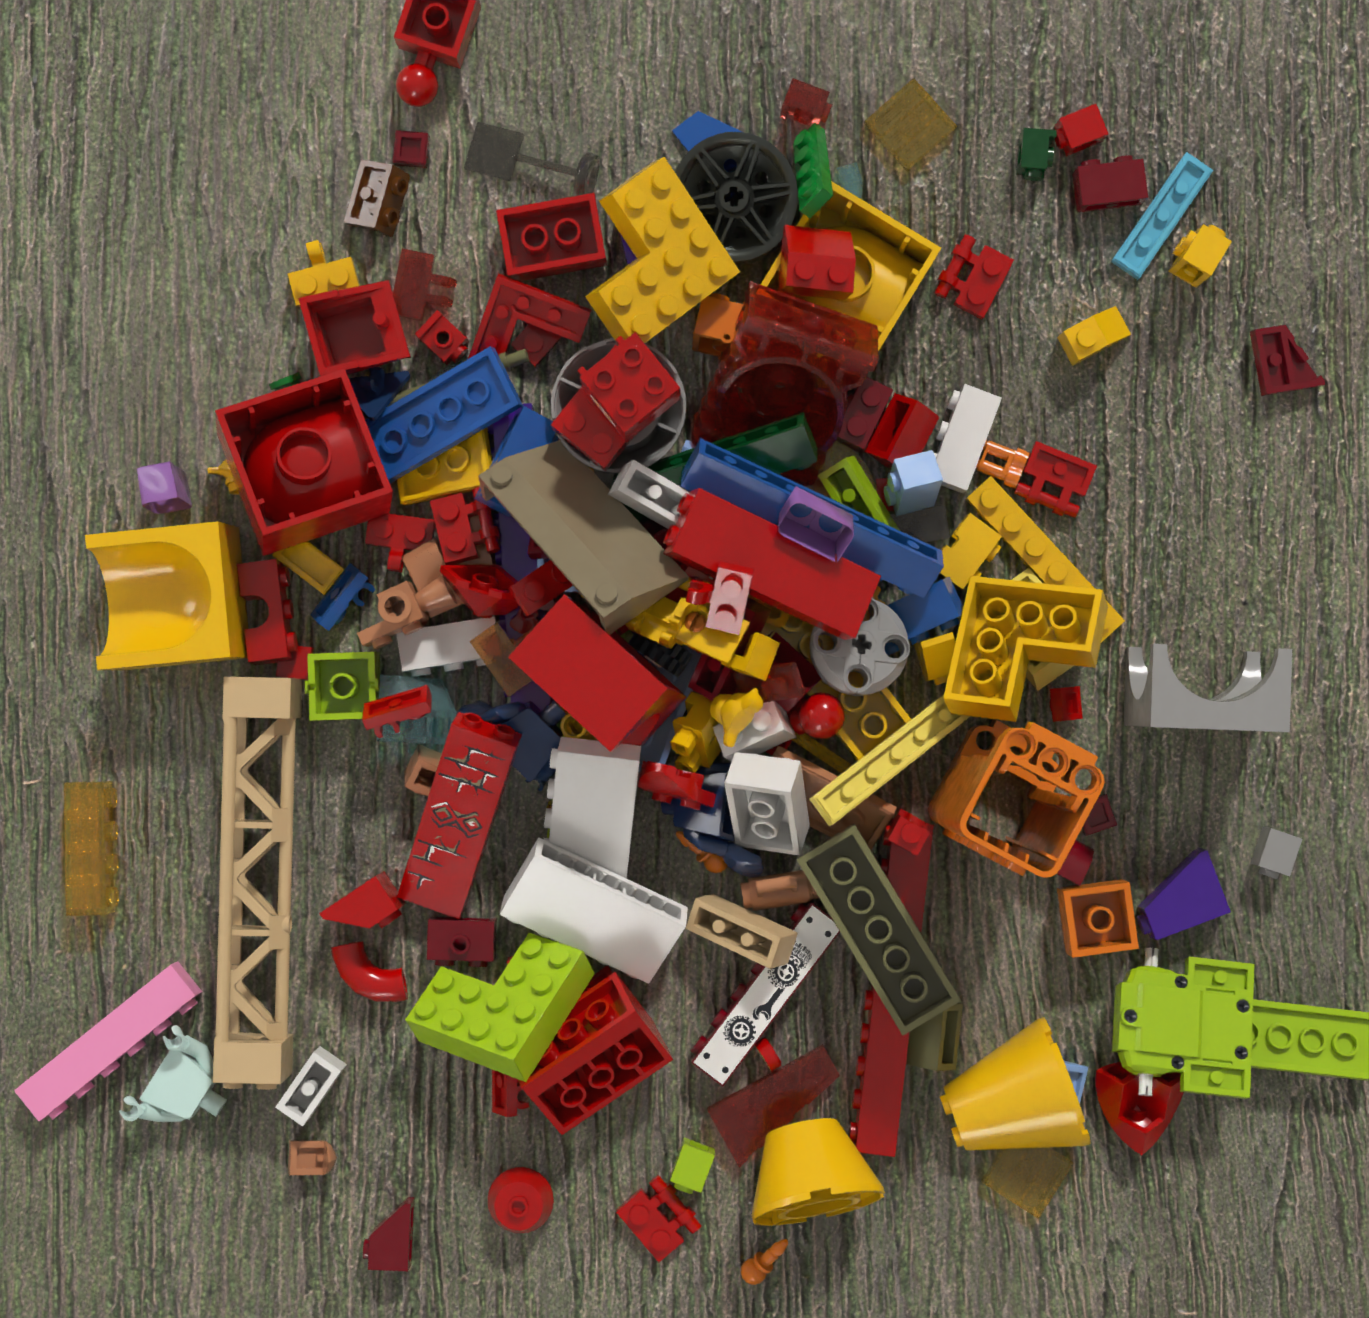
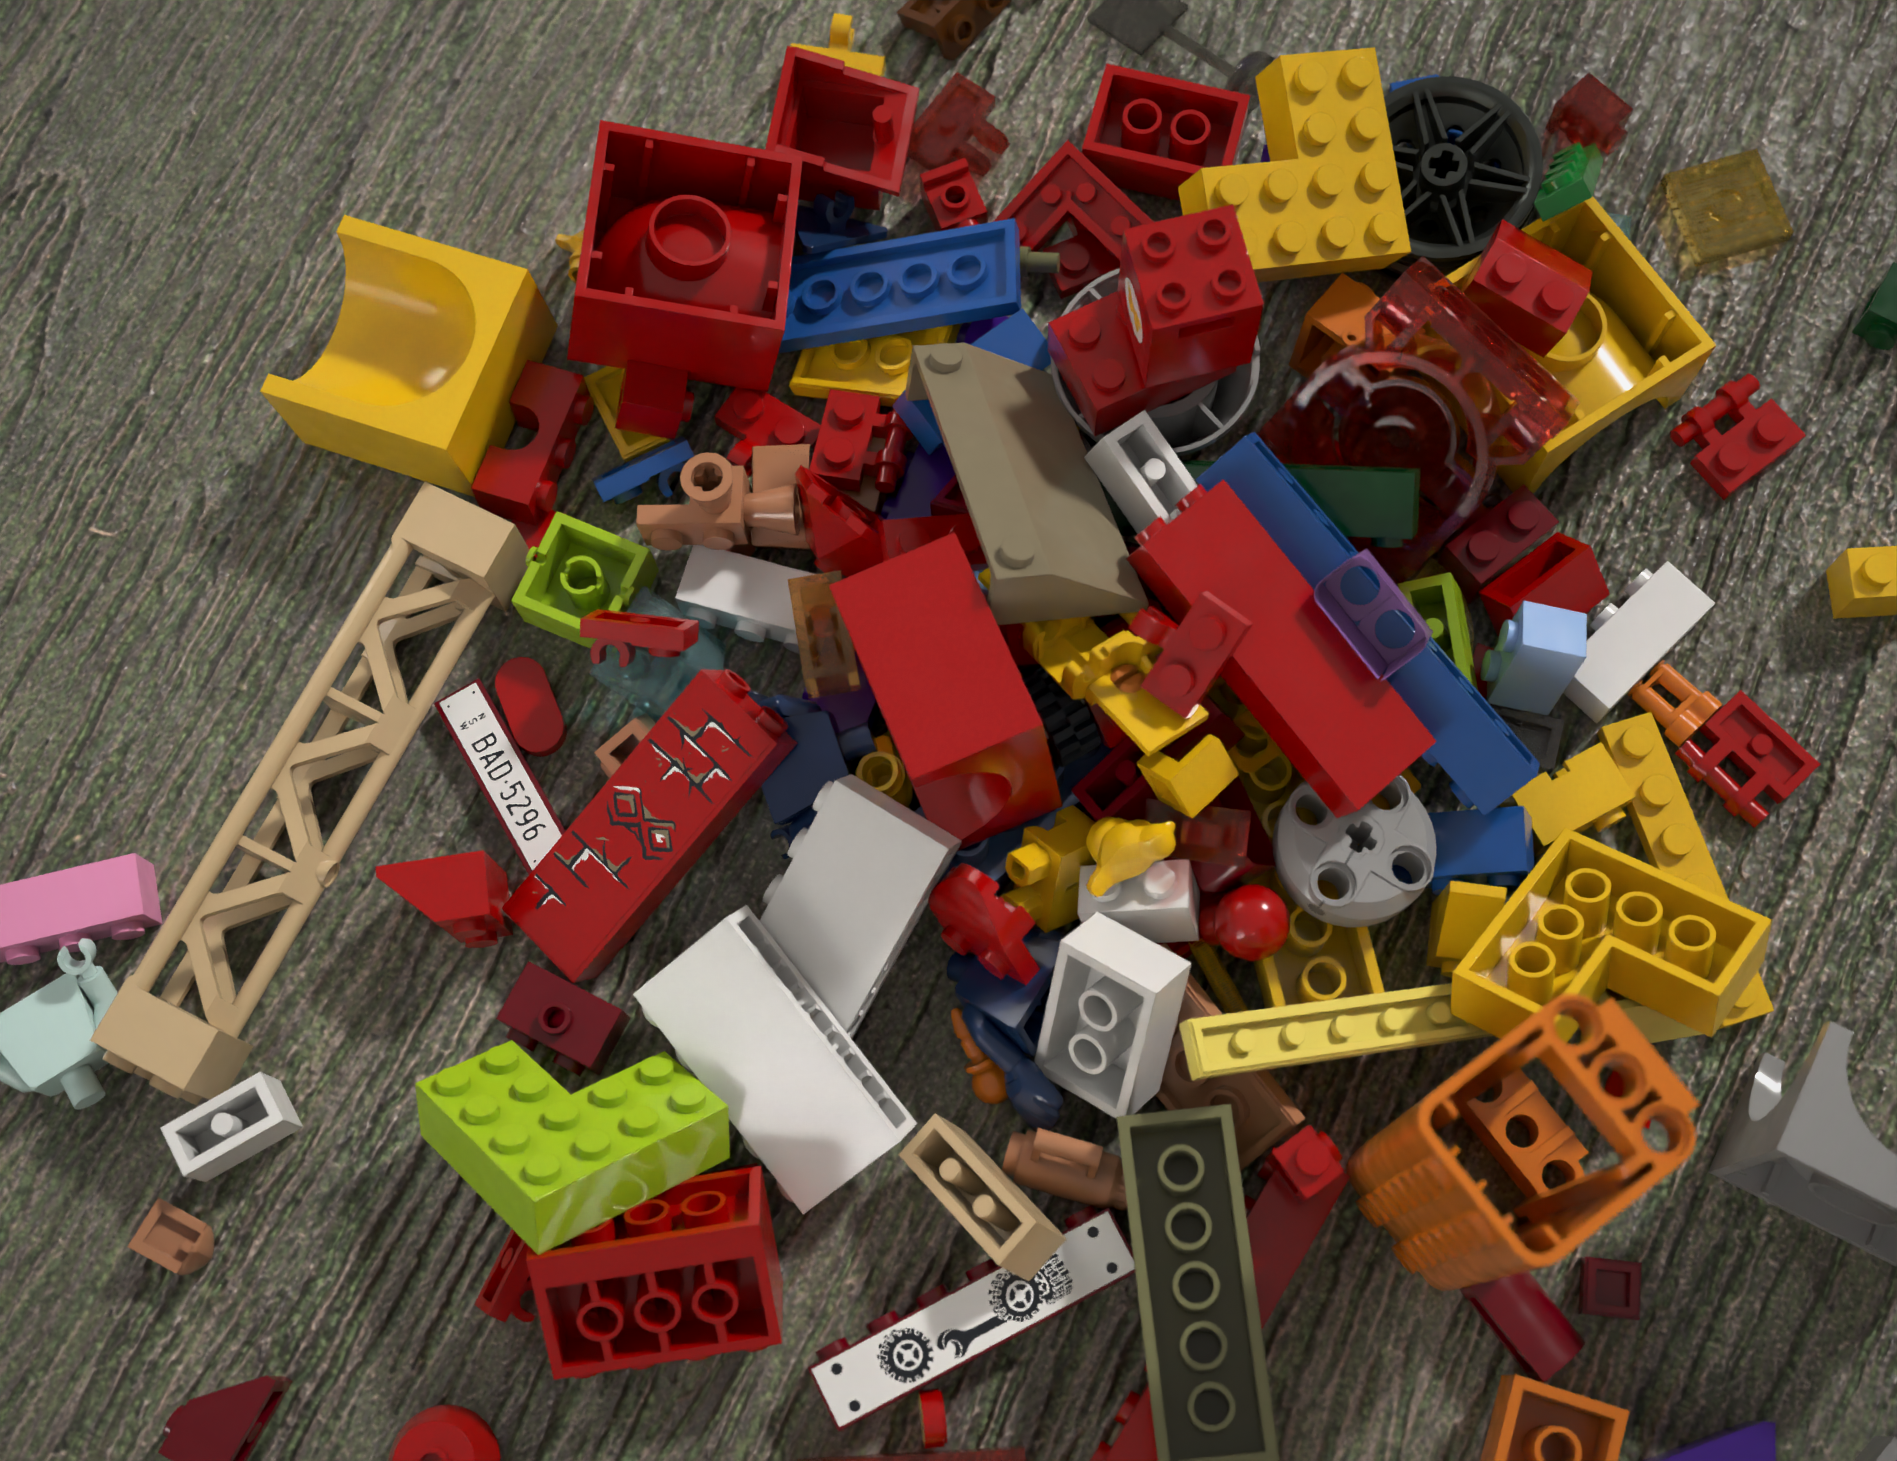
camera: 30 degrees right, 15 degrees down
(89, 848) = (122, 647): clear yellow brick -> none
(163, 490) = (473, 215): medium lavender piece -> none
(325, 554) = (653, 399): none -> red brick
(347, 769) = (530, 706): none -> red tile
(354, 817) = (501, 772): none -> white tile
(365, 977) = (398, 1011): red cylinder -> none

